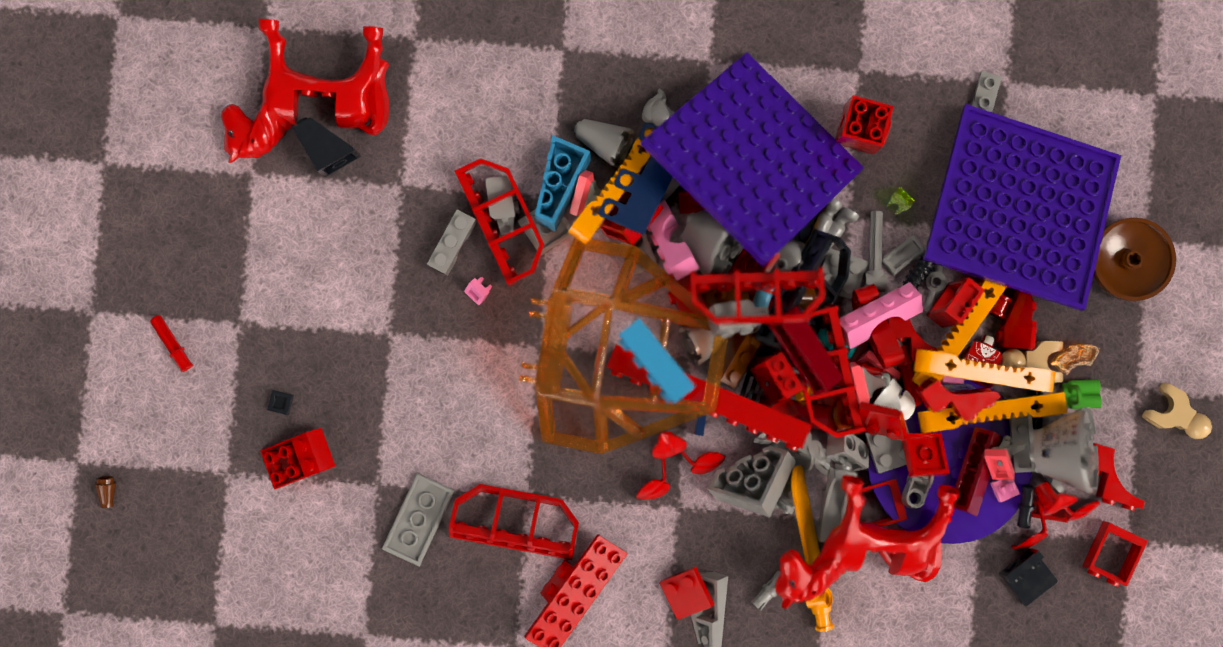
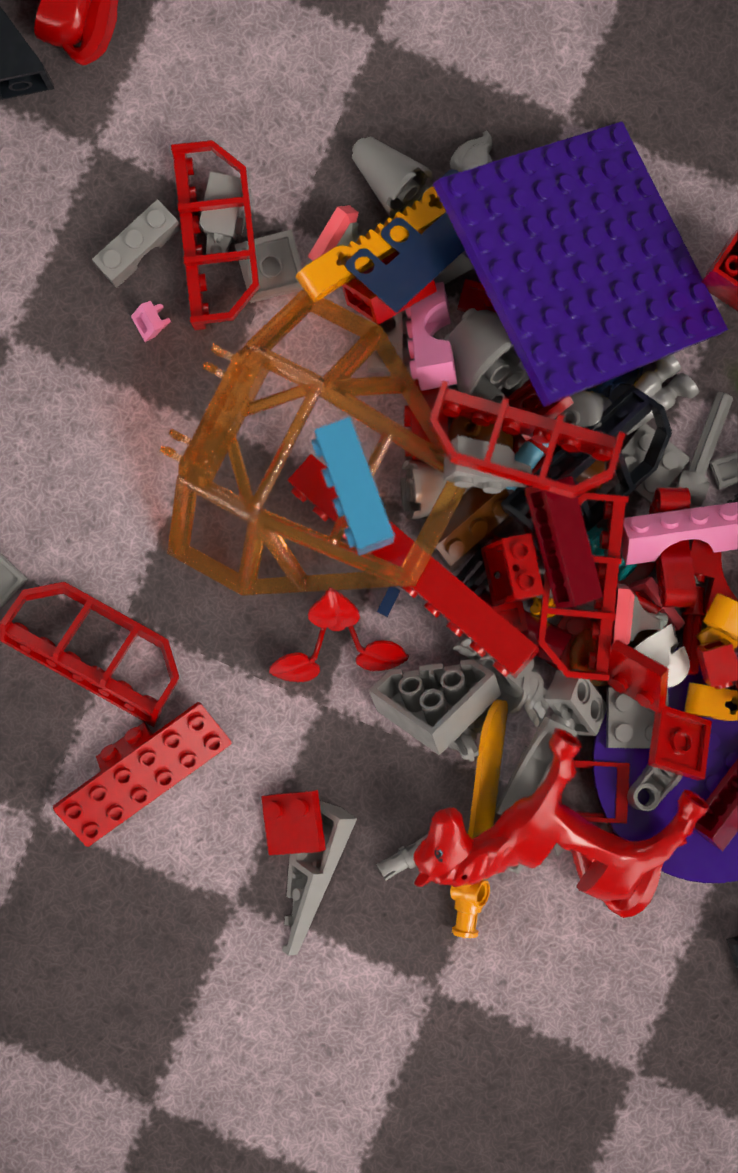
camera: 15 degrees right, 0 degrees up
(560, 179) = (308, 208): dark azure wedge -> none

